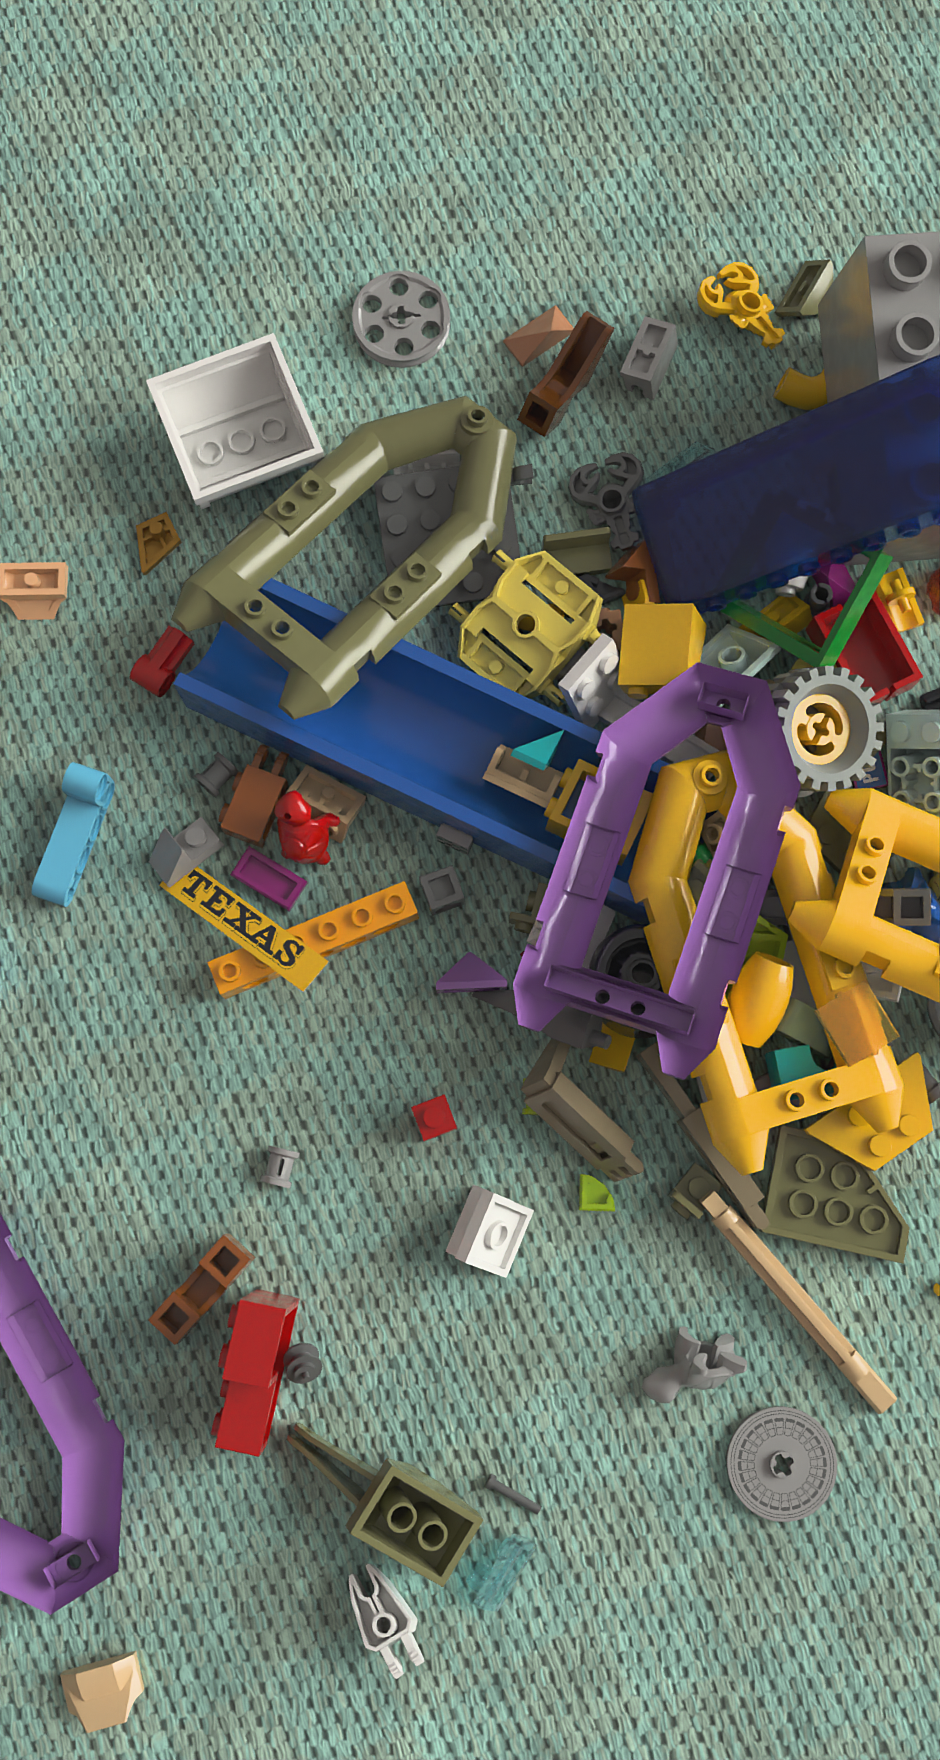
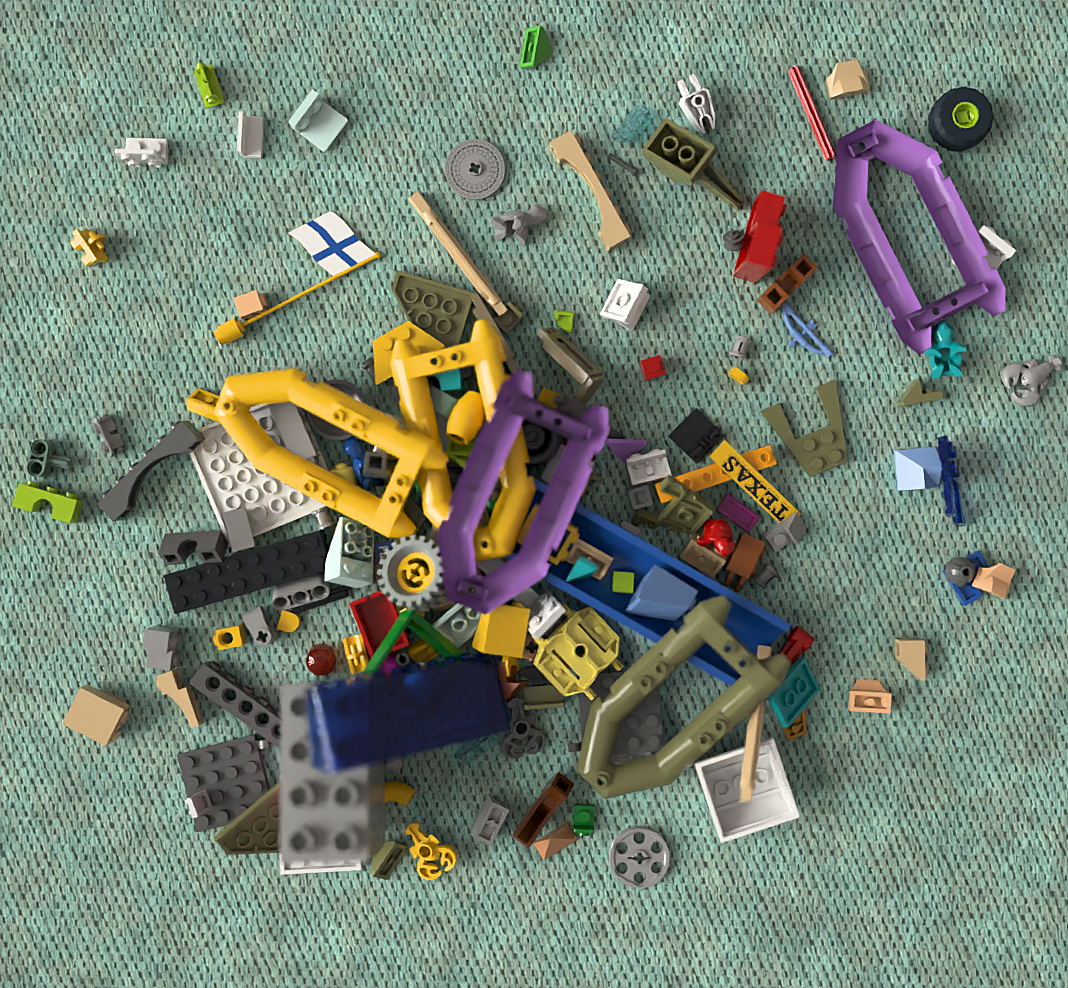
camera: 170 degrees left, 10 degrees up
(74, 833) = (849, 545): medium azure beam -> none
(130, 999) = (821, 448): none -> olive wing
(157, 581) = (795, 693): none -> teal plate
(168, 1621) = (812, 113): none -> axle
(175, 1195) = (824, 348): none -> medium blue piece
(228, 498) = (753, 740): none -> tan piece
(280, 1116) = (738, 376): none -> yellow tile
(348, 1006) = (696, 435): none -> black hinge
(366, 868) = (682, 514): none -> olive wing
(396, 718) = (662, 596): none -> medium blue slope
(429, 943) = (648, 467): none -> white bracket
(461, 743) = (622, 582): none -> lime tile
(496, 368) = (583, 819): none -> green bracket
(615, 1509) = (568, 151): none -> tan arch
(692, 1708) = (535, 48): none -> bright green slope
(856, 1023) = (414, 397): clear yellow piece -> none

